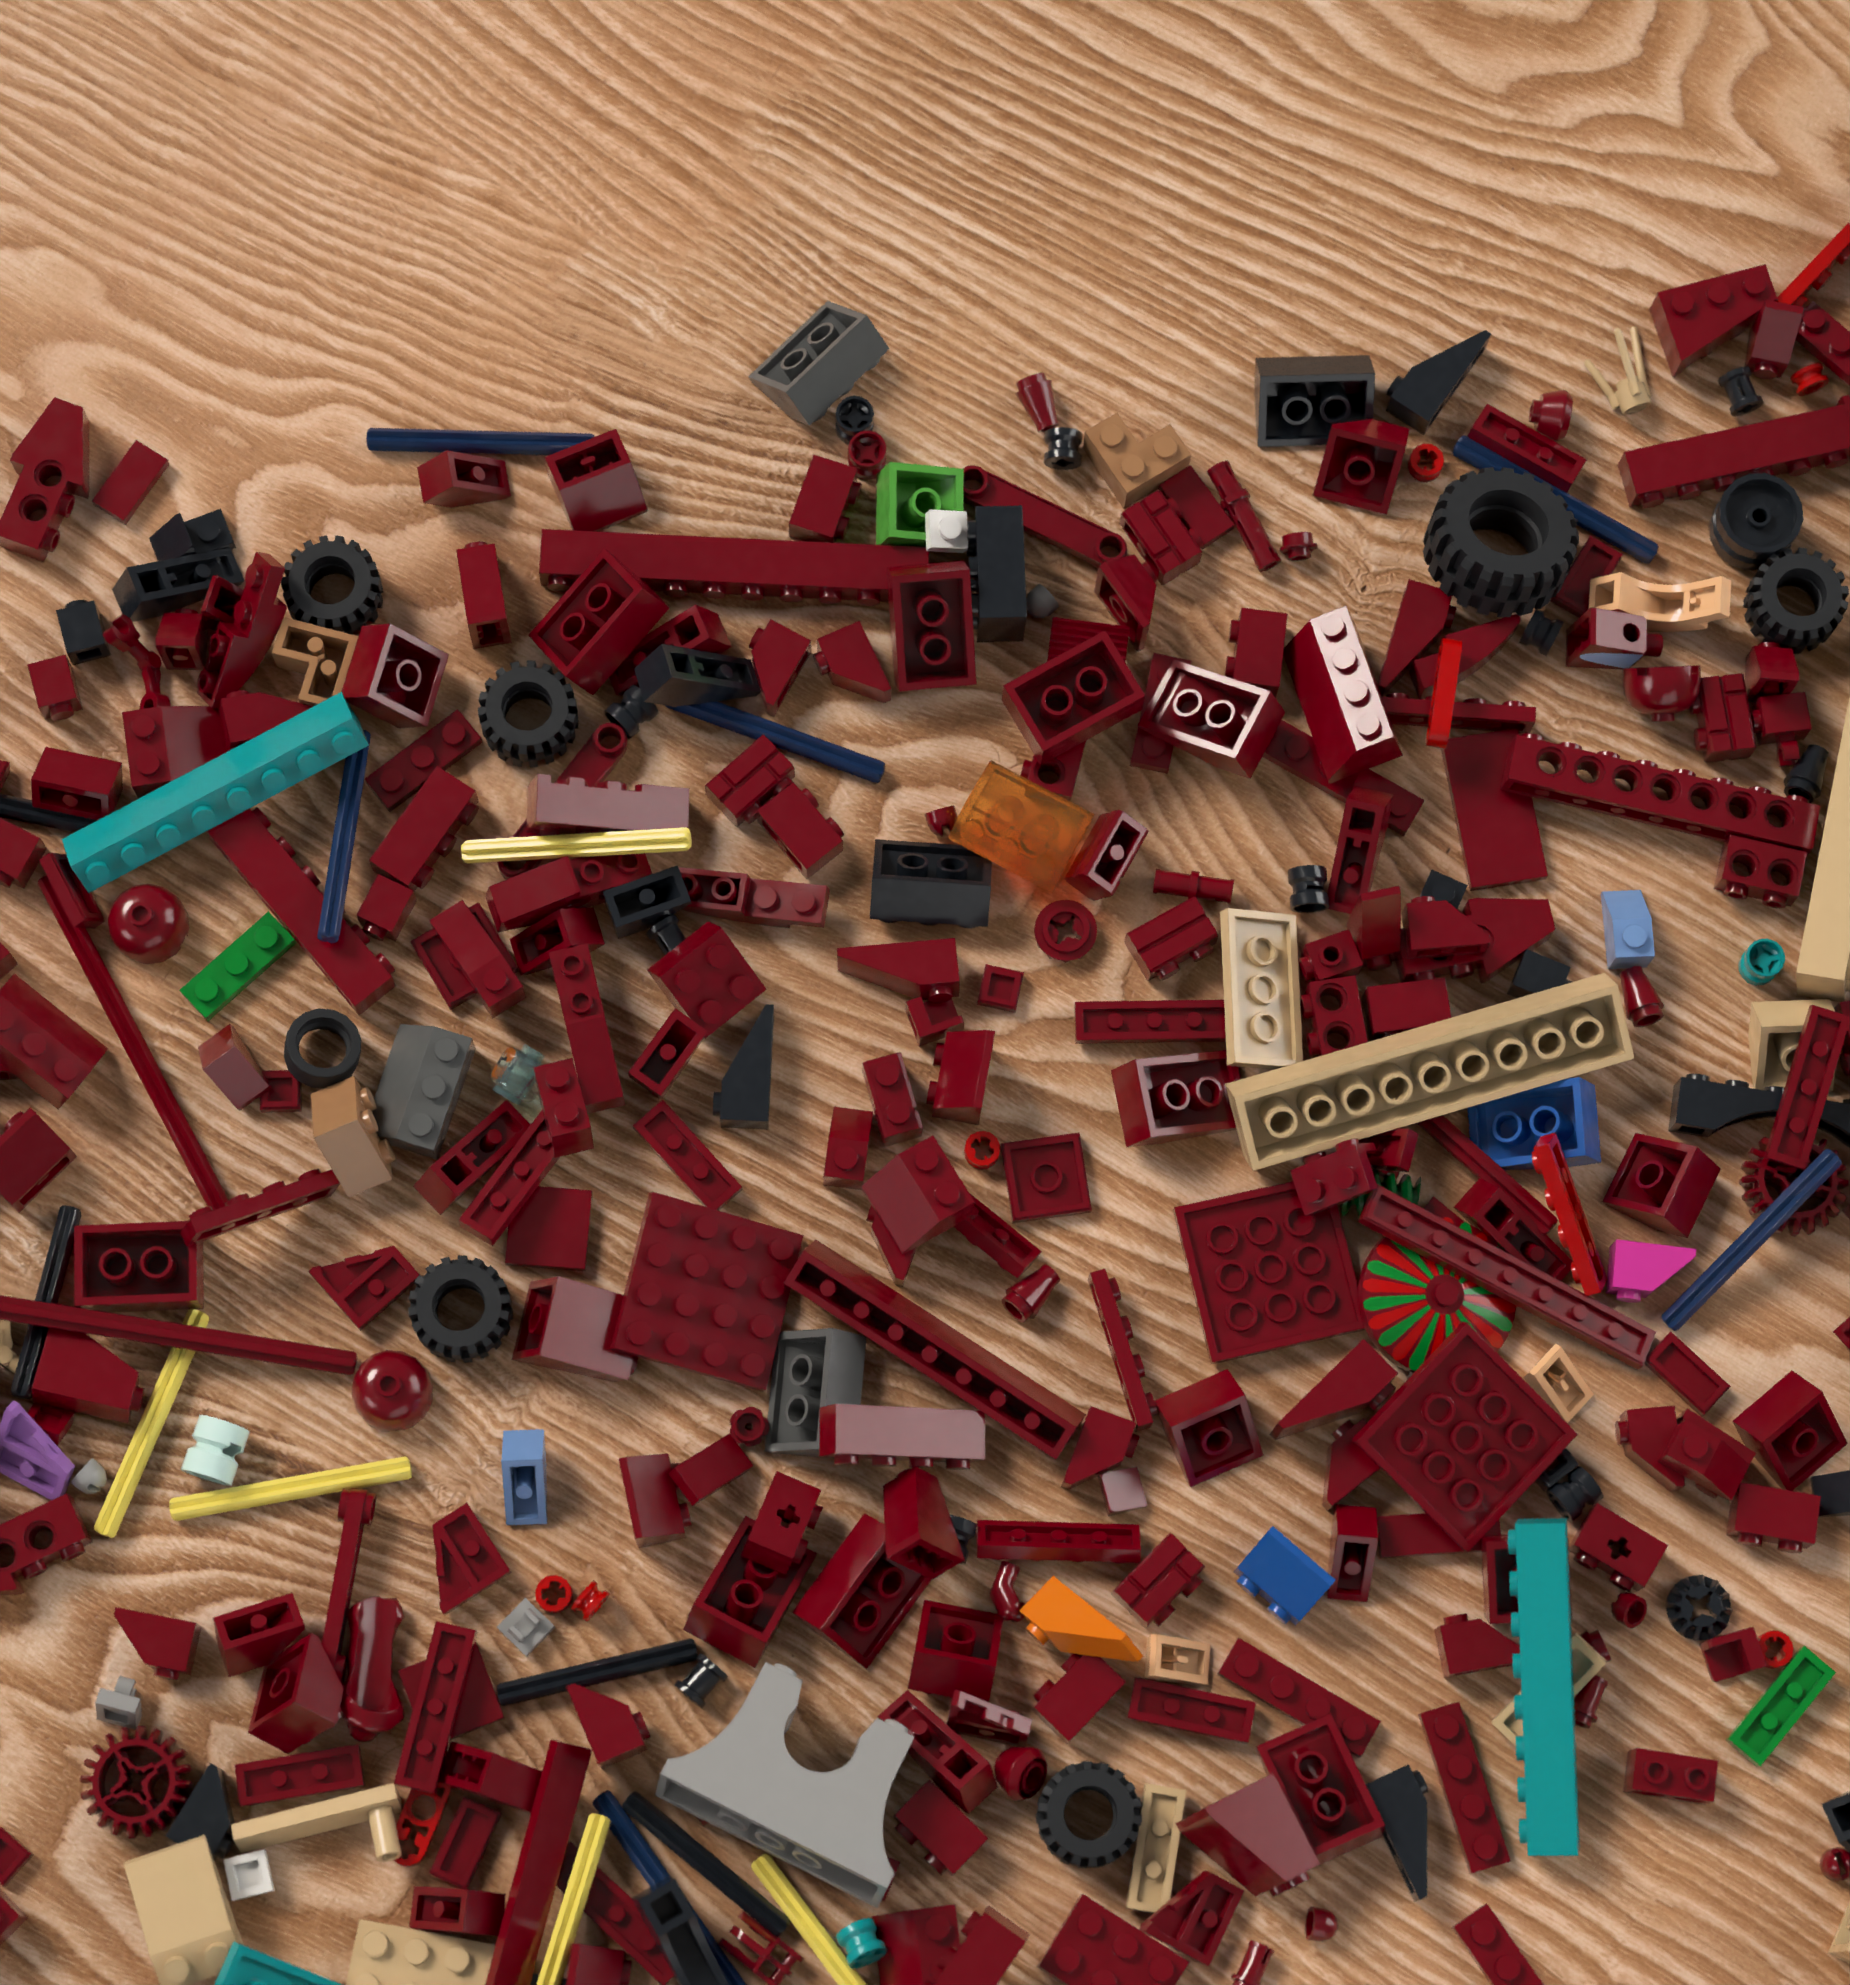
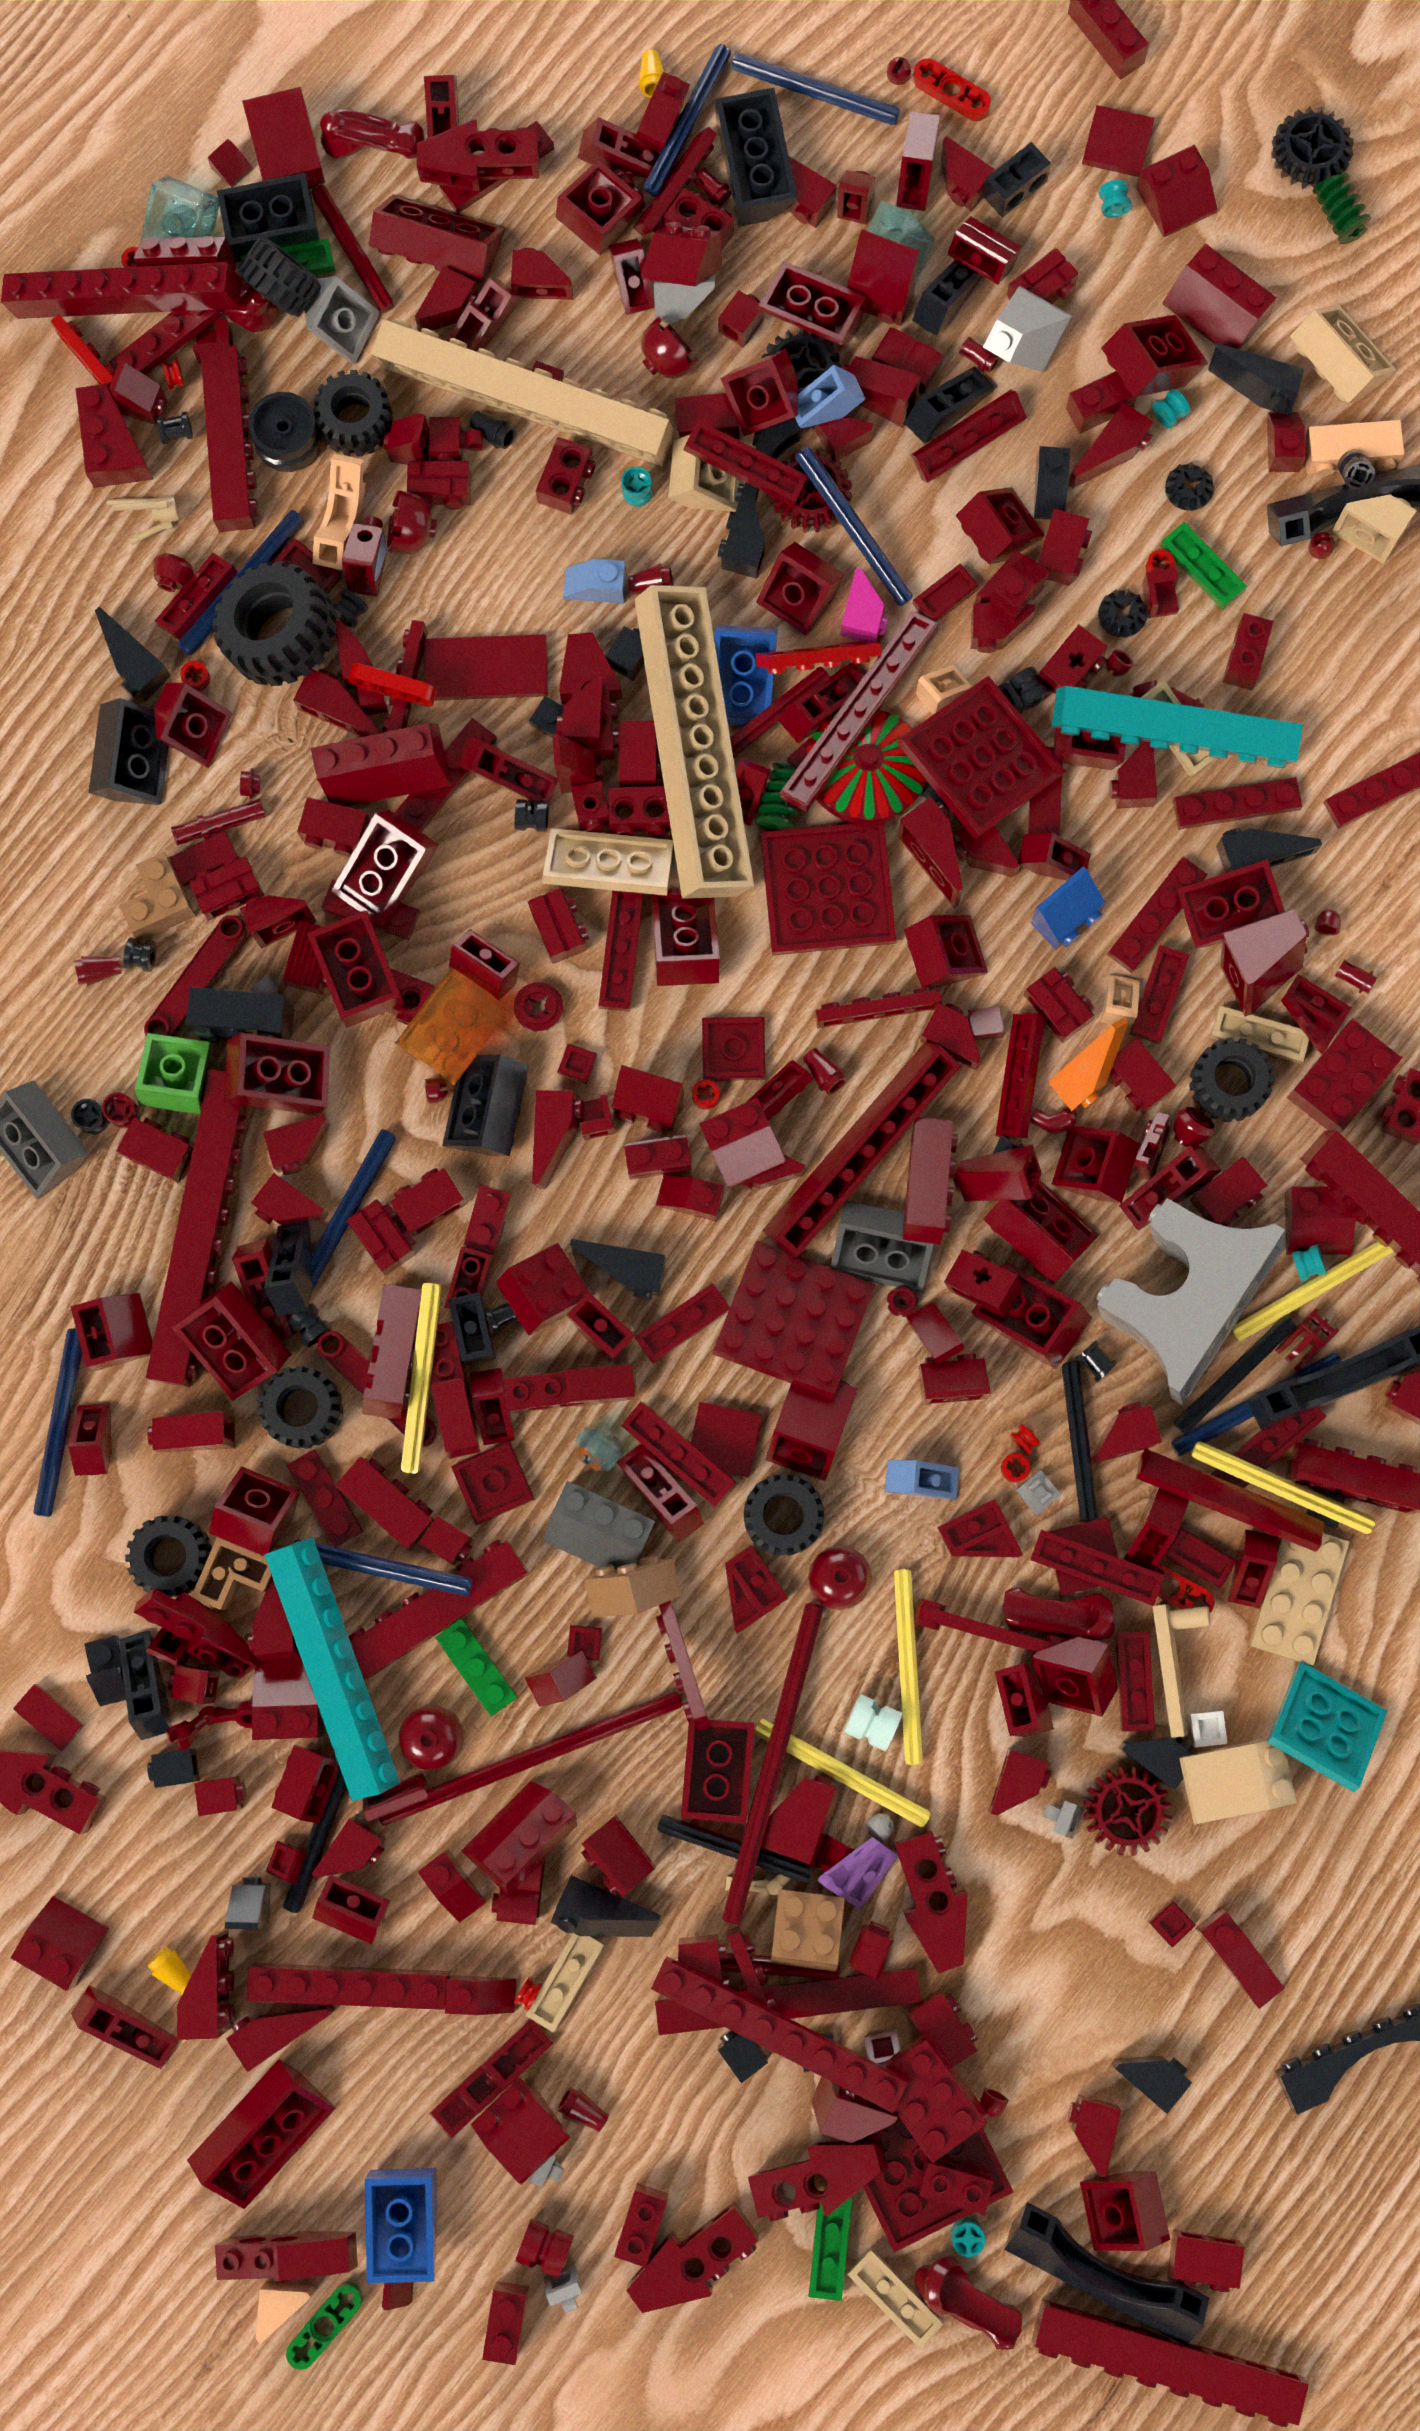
camera: 70 degrees left, 5 degrees up
(324, 1020) = (536, 1590): black tyre -> none
(478, 959) = (498, 1470): dark red slope -> none
(563, 1107) = (634, 1413): dark red brick -> none
(946, 531) = (199, 1052): white plate -> none
(1193, 885) = (516, 903): dark red pin -> none
(1335, 1177) = (769, 824): dark red bracket -> none
(1716, 822) = (465, 636): dark red brick -> none

